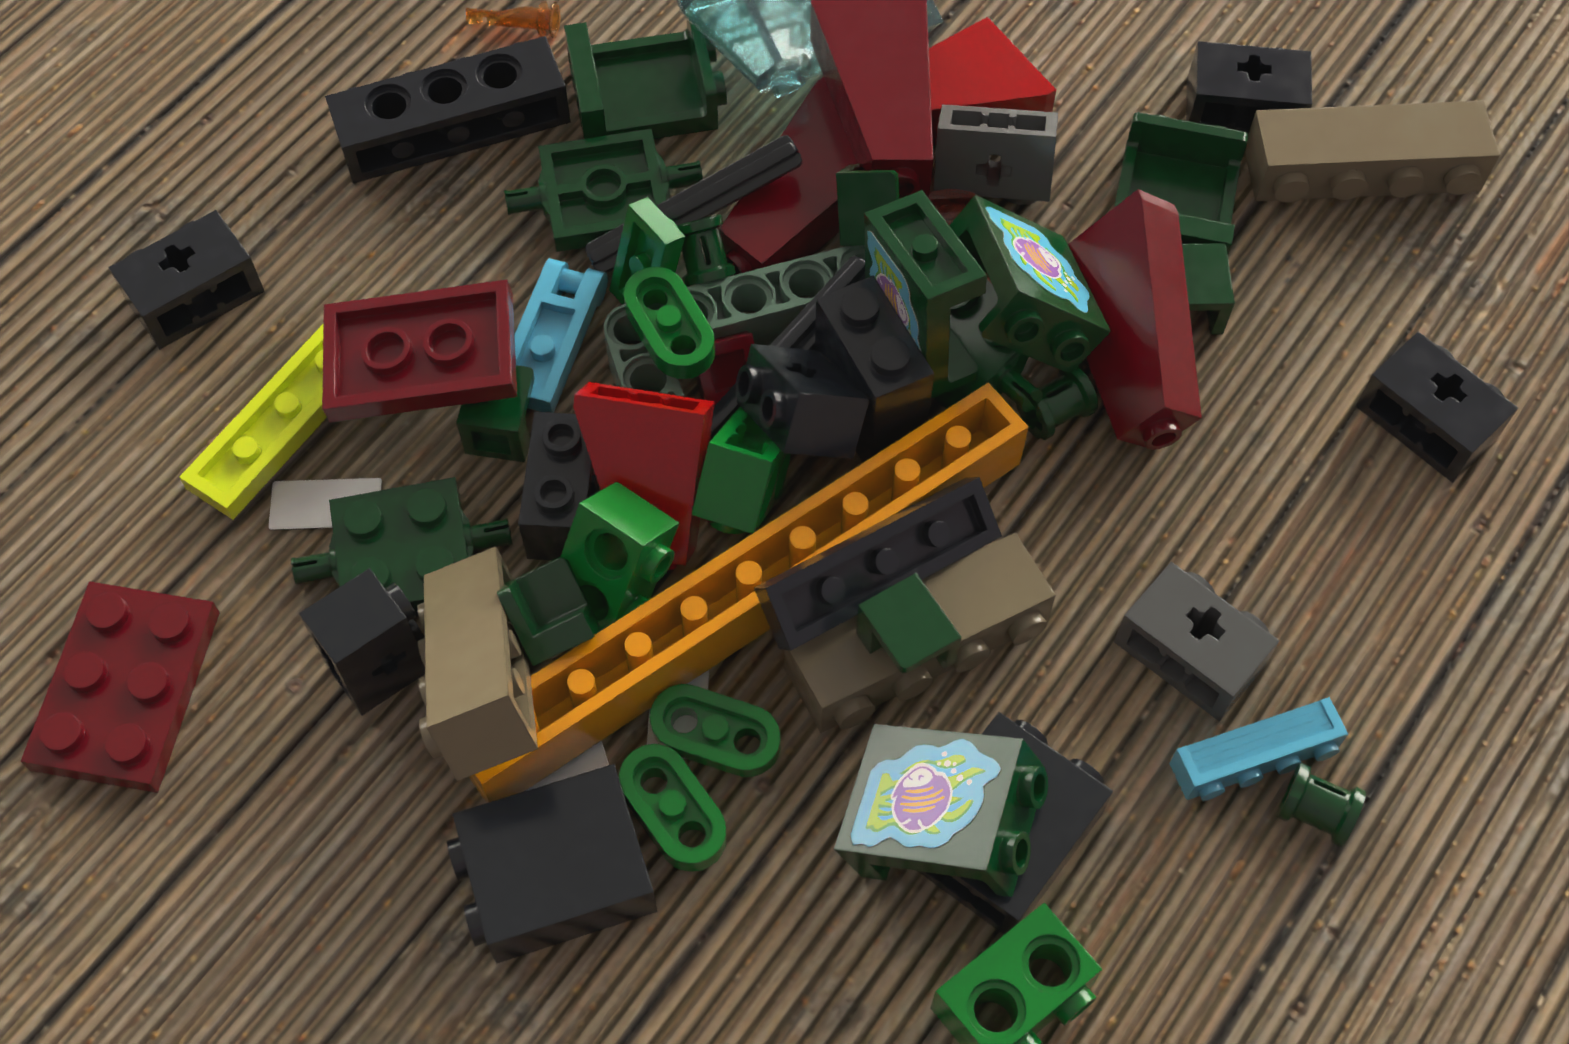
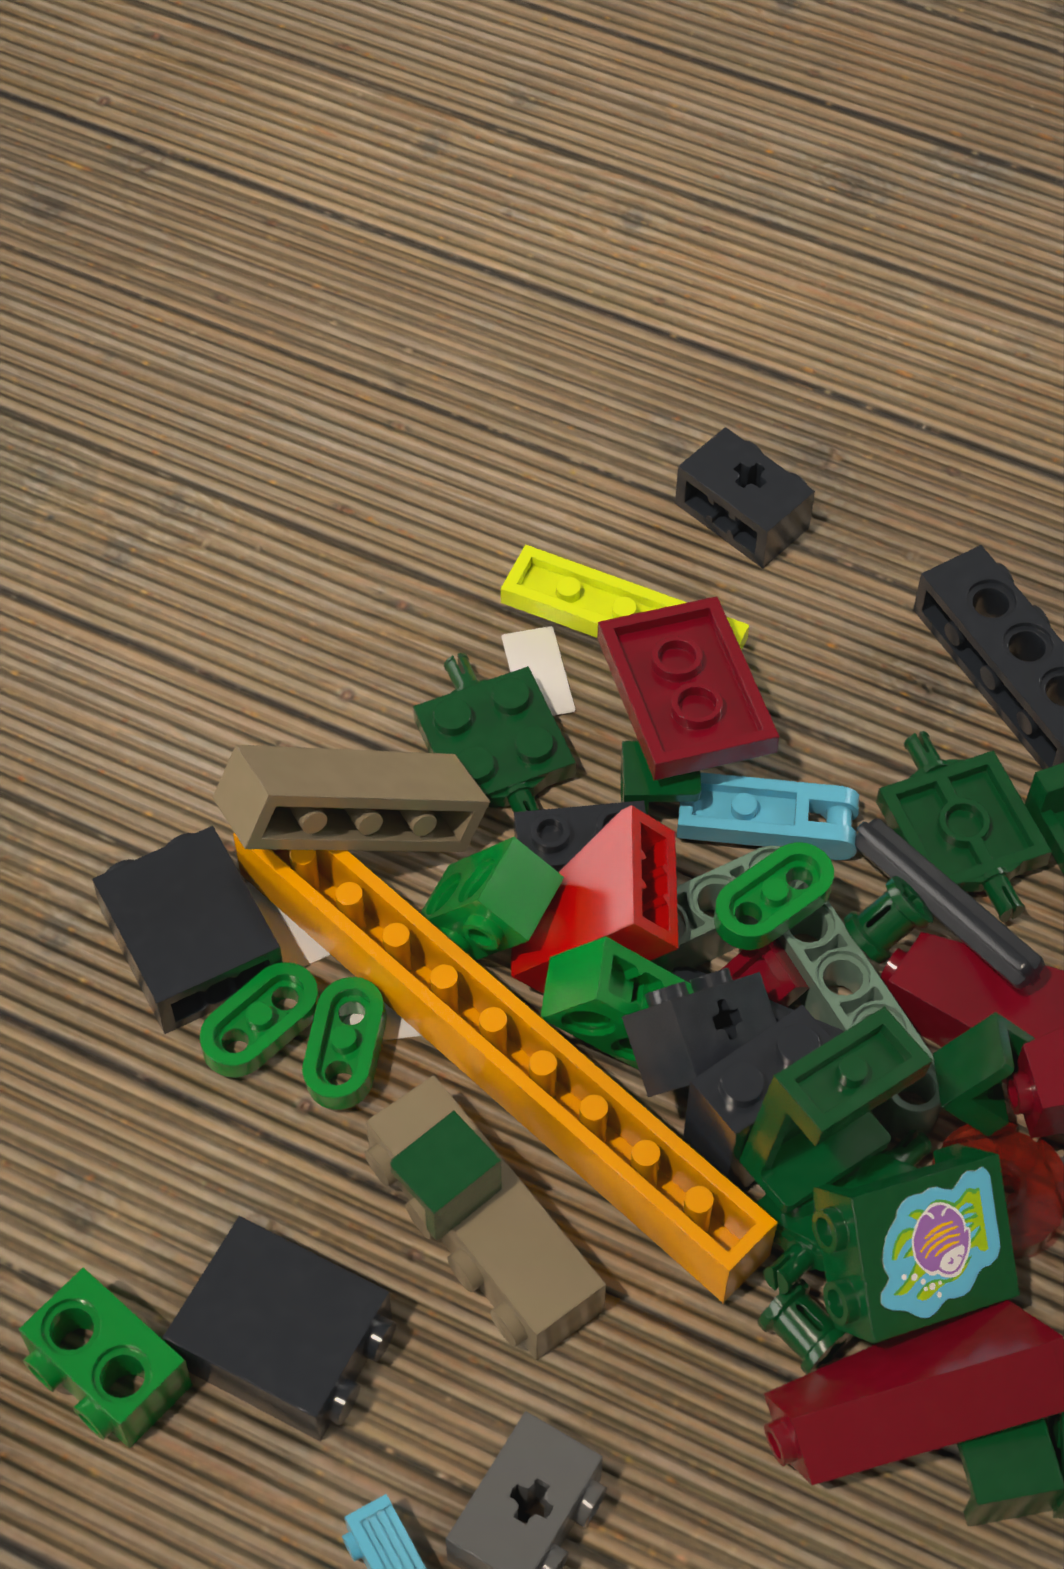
camera: 80 degrees right, 5 degrees down
(121, 687) = (320, 564): dark red plate -> none
(367, 639) = (369, 705): black brick -> none
(548, 610) = (418, 851): dark green panel -> none
(645, 242) = (867, 866): green plate -> none
(915, 540) = (532, 1143): black plate -> none
(943, 806) = (269, 1250): panel -> none

